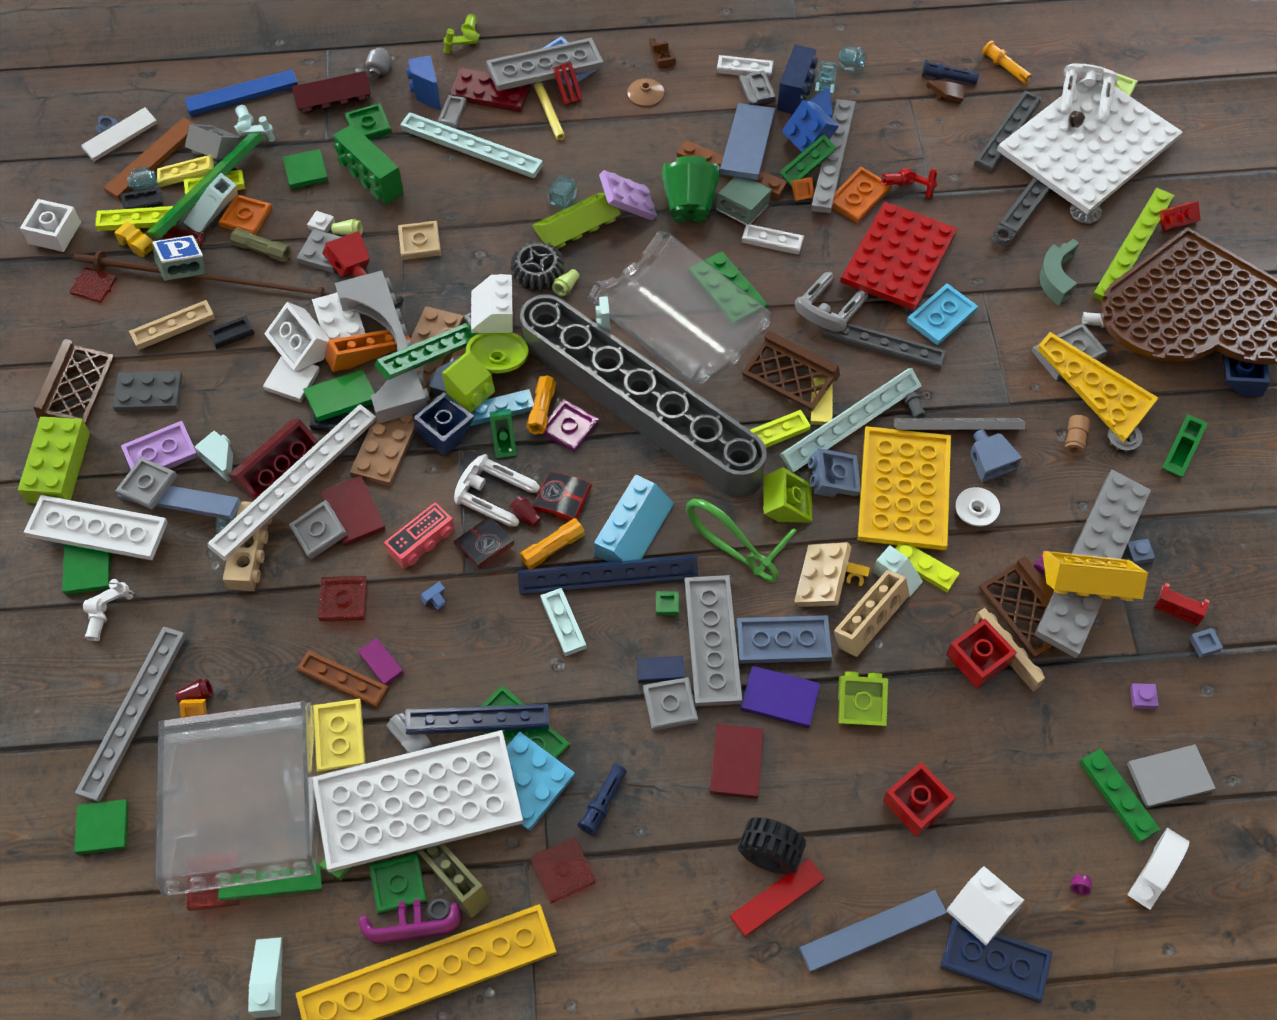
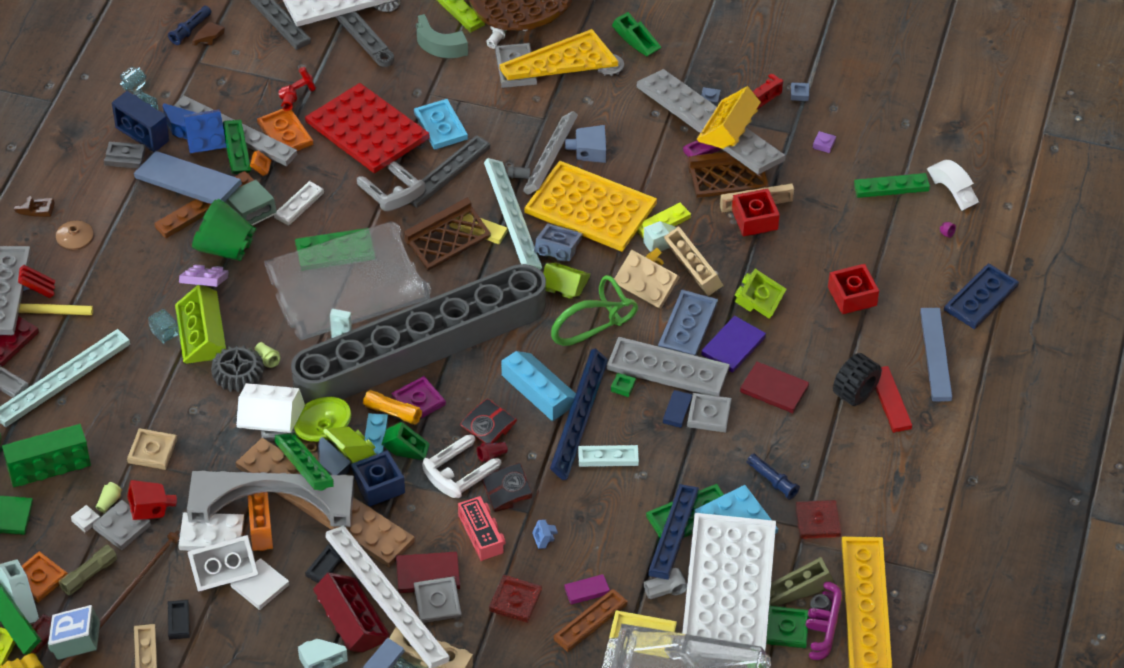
camera: 70 degrees left, 10 degrees down
(339, 395) = (302, 549): green tile -> none
(565, 535) = (536, 453): light orange axle -> none
(742, 66) = (89, 156): white tile -> none
(782, 428) = (497, 256): neon yellow plate -> none
(977, 499) = (630, 169): white dish -> none
(985, 905) = (944, 282): white slope -> none
(1077, 435) = (596, 89): medium nougat piece -> none
(1170, 776) = (889, 152): light grey tile -> none

